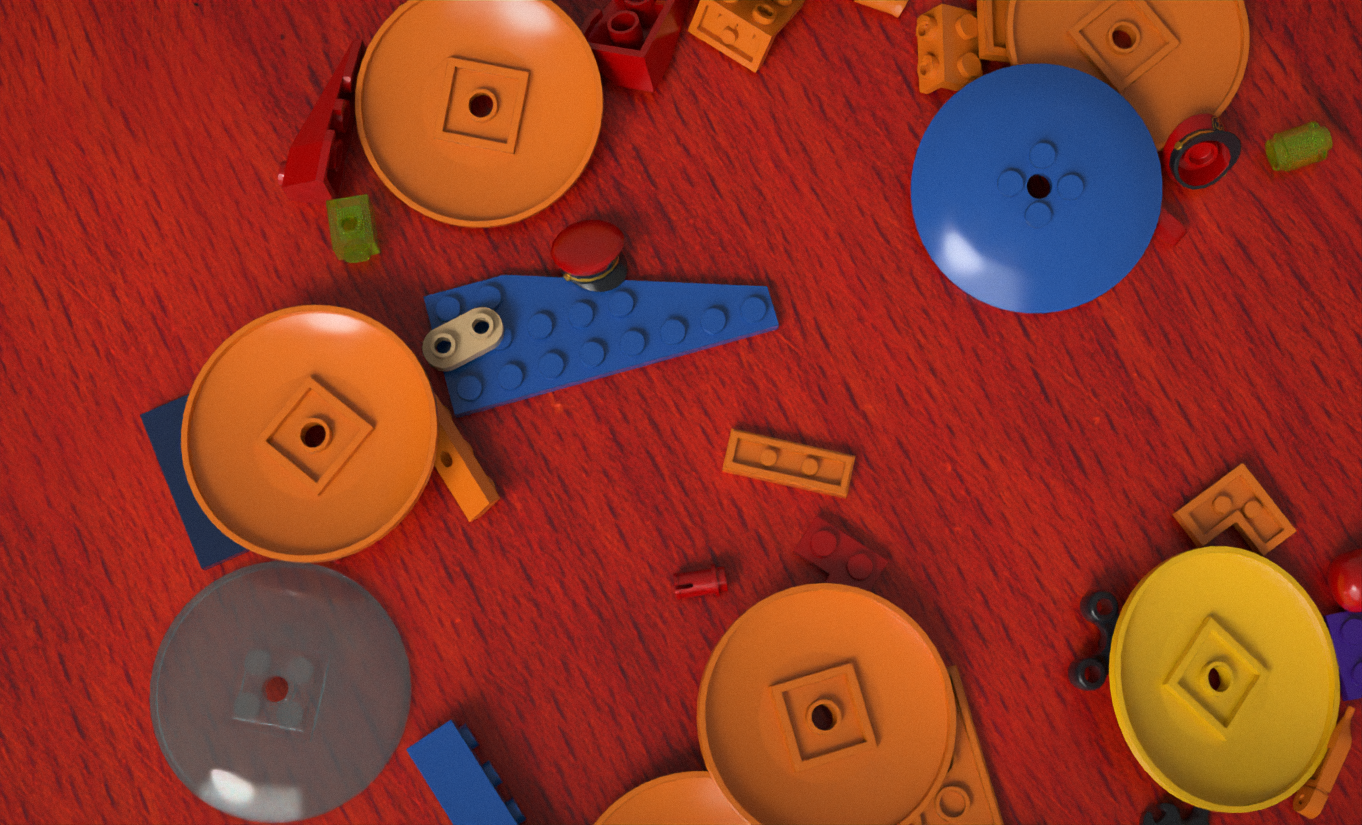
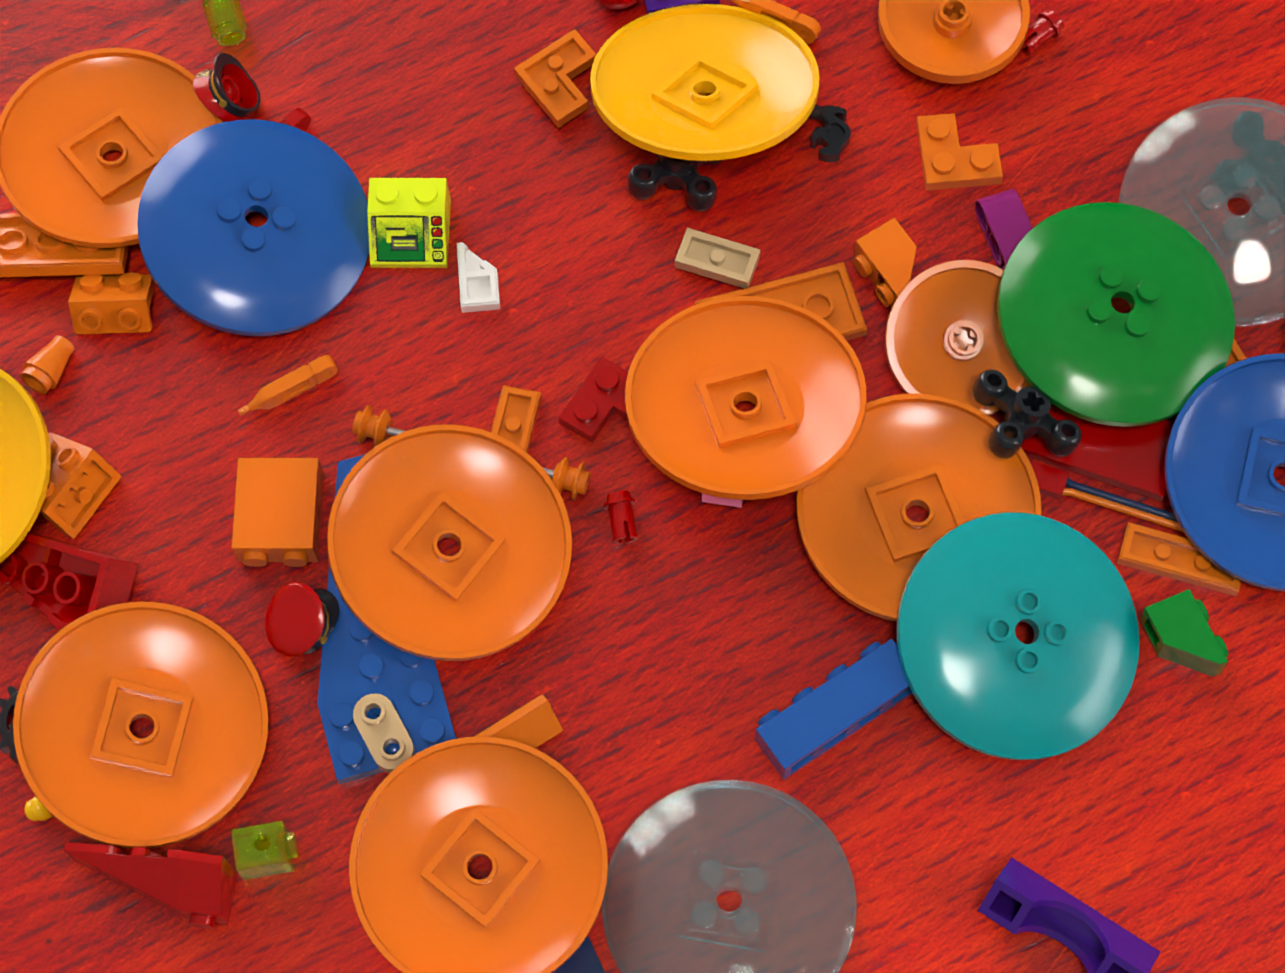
camera: 85 degrees left, 10 degrees down
(603, 389) = (461, 488): none -> orange dish
(710, 227) = (277, 511): none -> orange brick
(802, 327) = (380, 428): none -> orange axle
(856, 237) = (292, 384): none -> orange piece
(980, 426) = (476, 282): none -> white tile
(1009, 691) = (717, 258): none -> tan plate
(1046, 351) = (408, 222): none -> neon yellow slope

